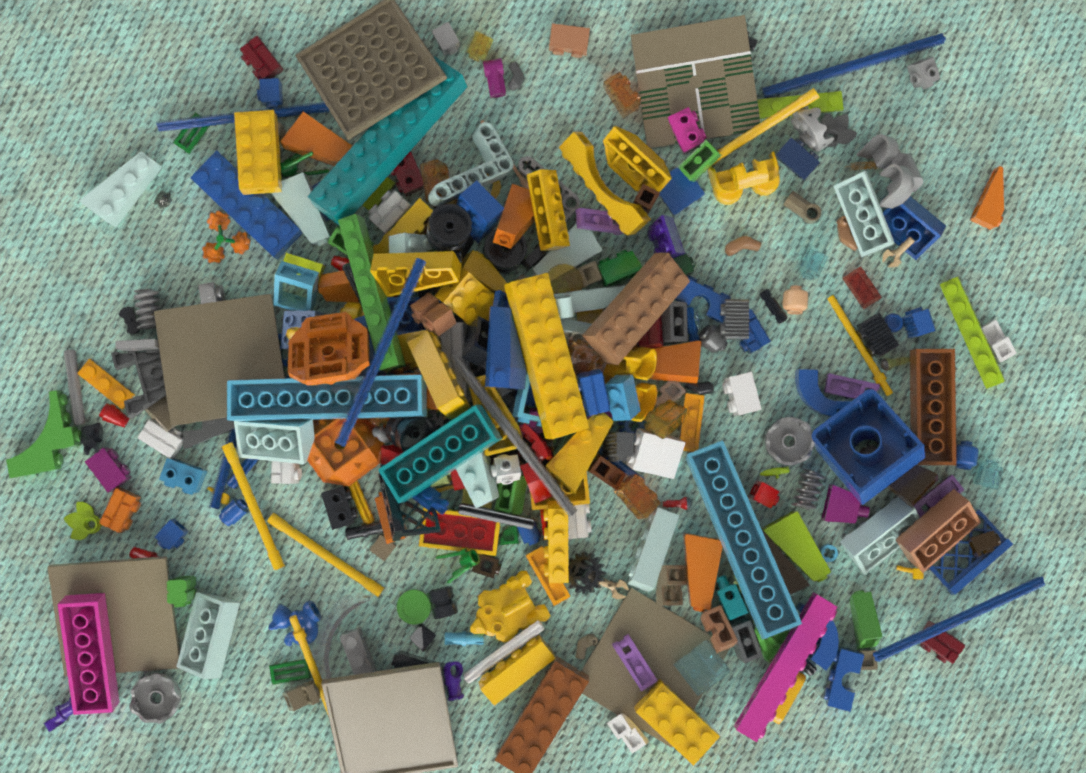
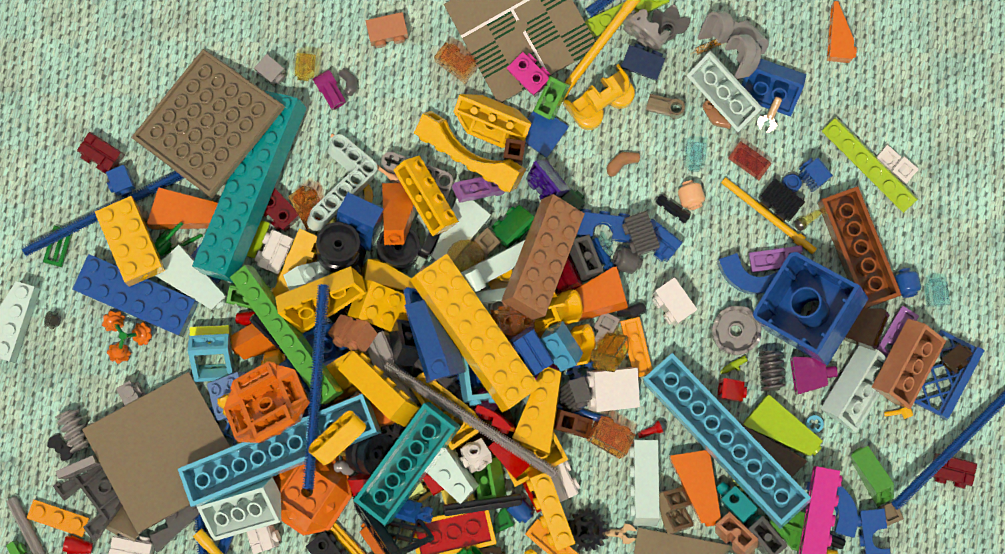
camera: 15 degrees left, 5 degrees down
(383, 407) = (337, 437): none -> yellow beam

